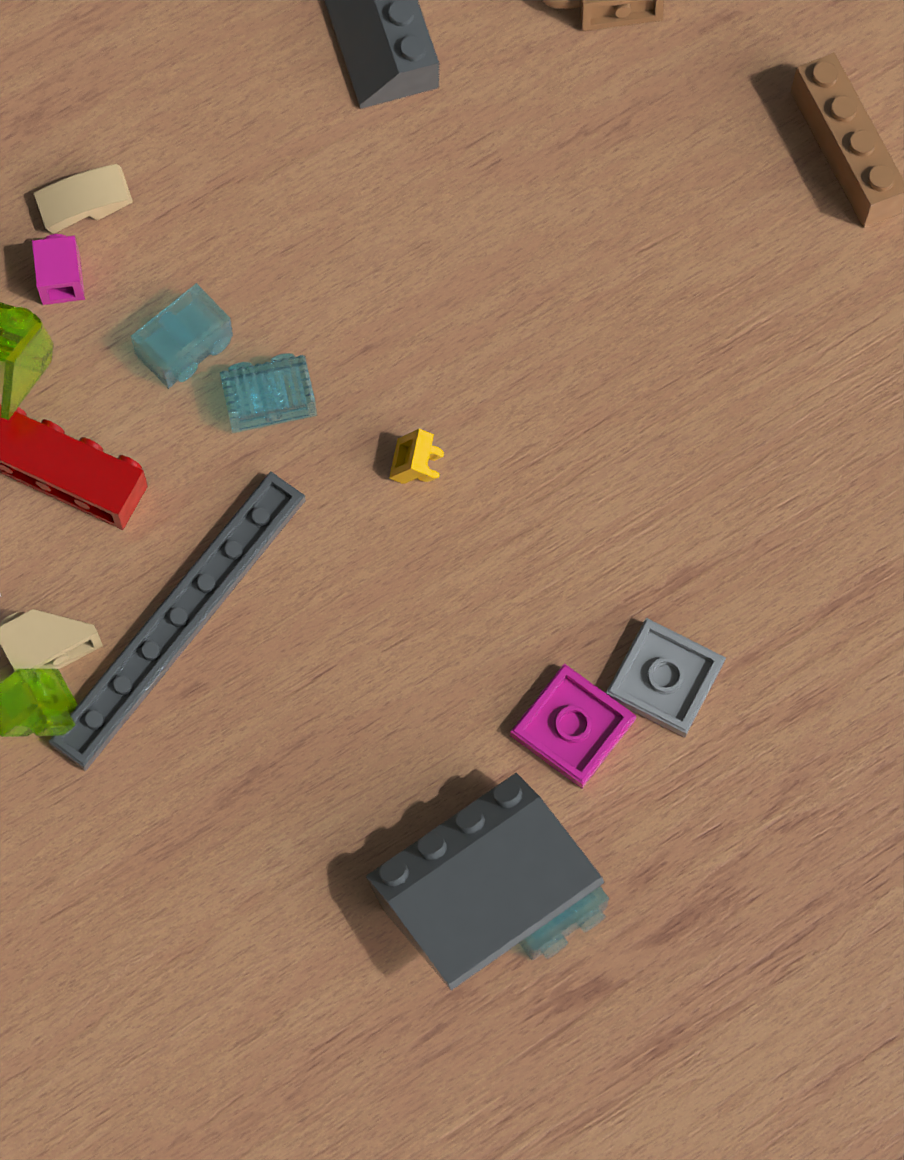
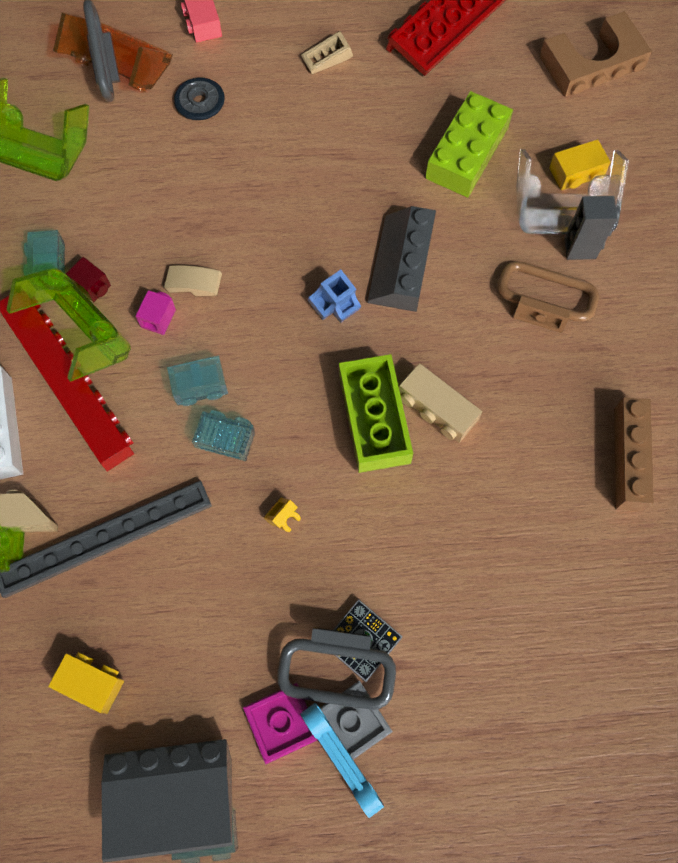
camera: 30 degrees right, 0 degrees up
(281, 806) = (87, 683): none -> yellow brick
(314, 121) = (335, 296): none -> medium blue brick
(467, 255) = (375, 413): none -> lime brick
(547, 200) = (439, 403): none -> tan brick
(596, 579) = (339, 644): none -> dark grey bar
(620, 567) = (383, 637): none -> tile
(729, 746) = (360, 787): none -> medium azure piece

